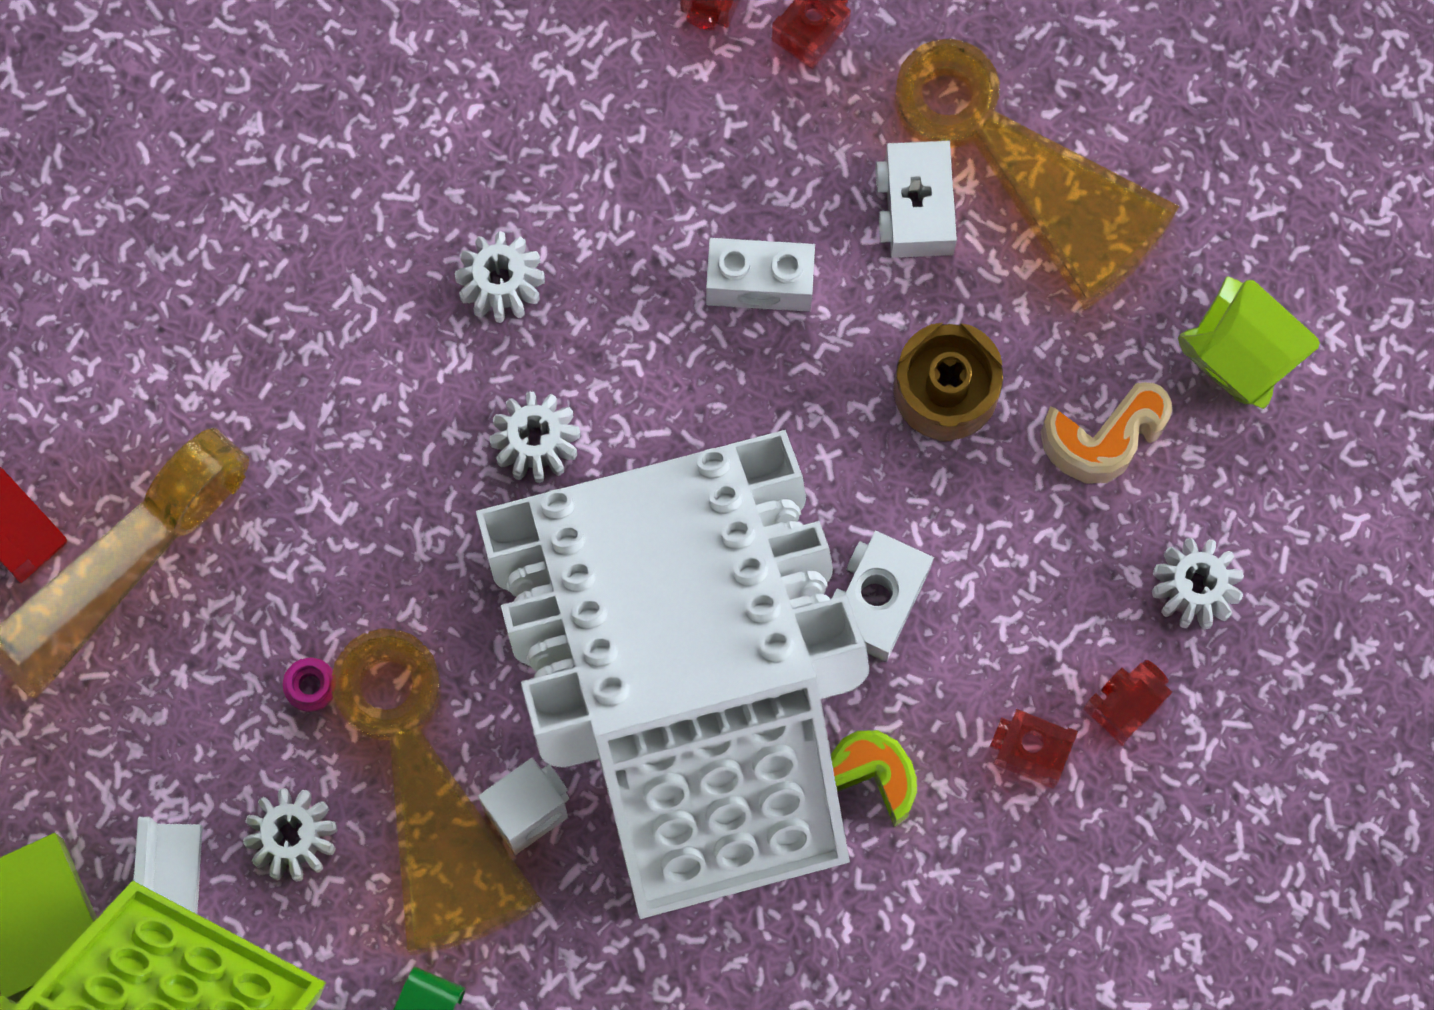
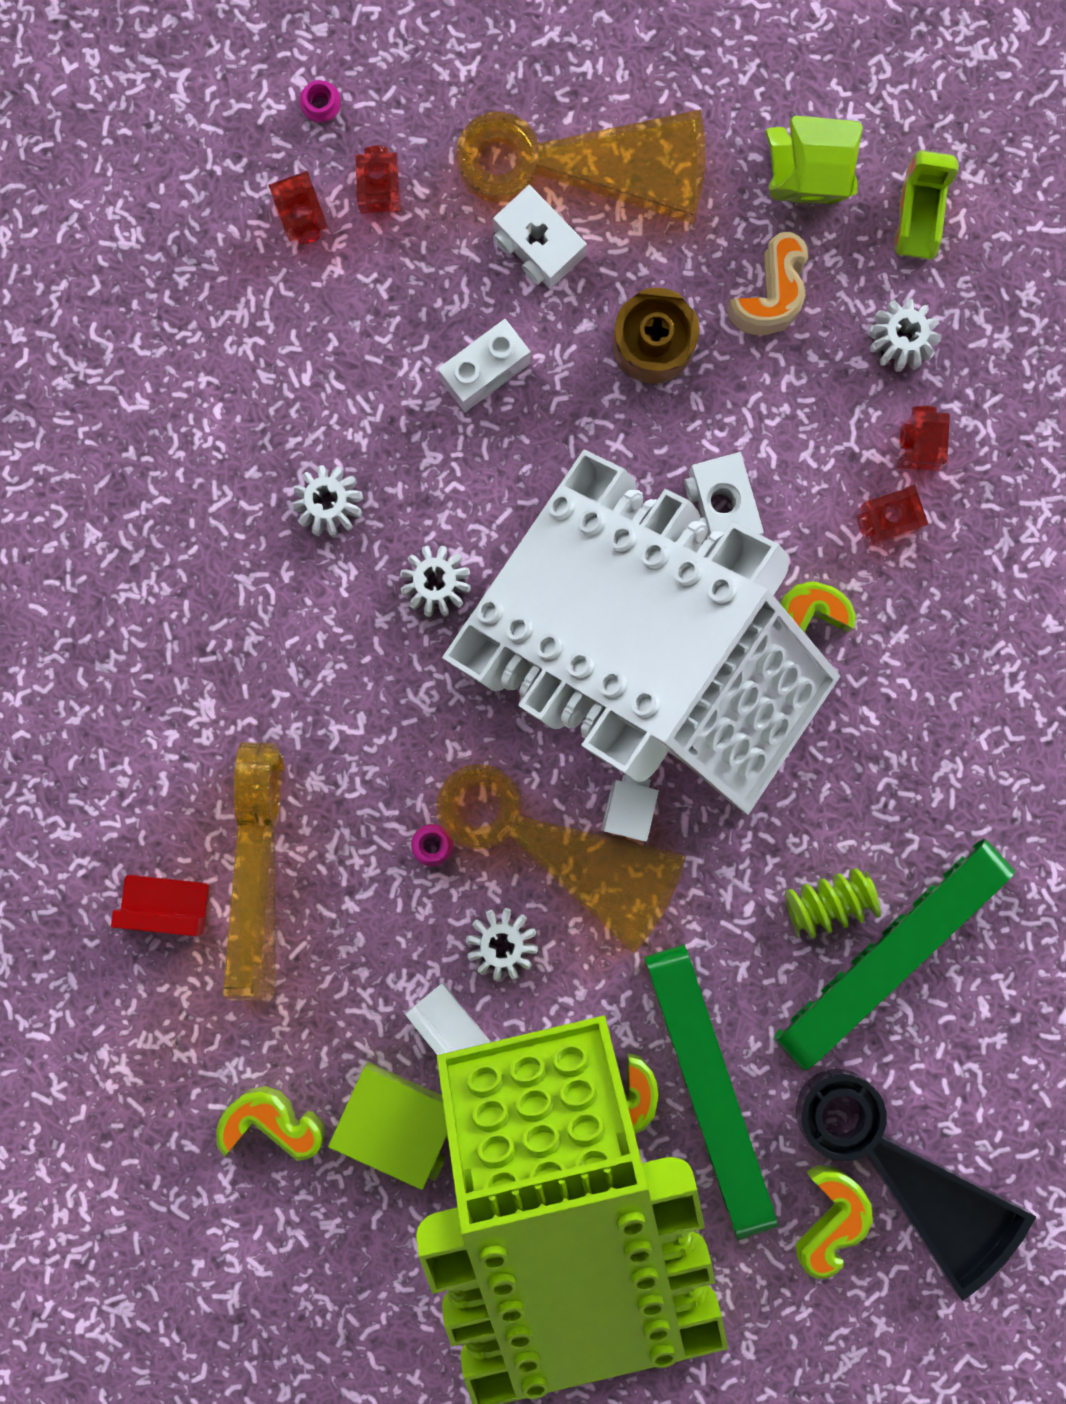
camera: 40 degrees left, 10 degrees up
(1323, 475) = (924, 204): none -> lime animal

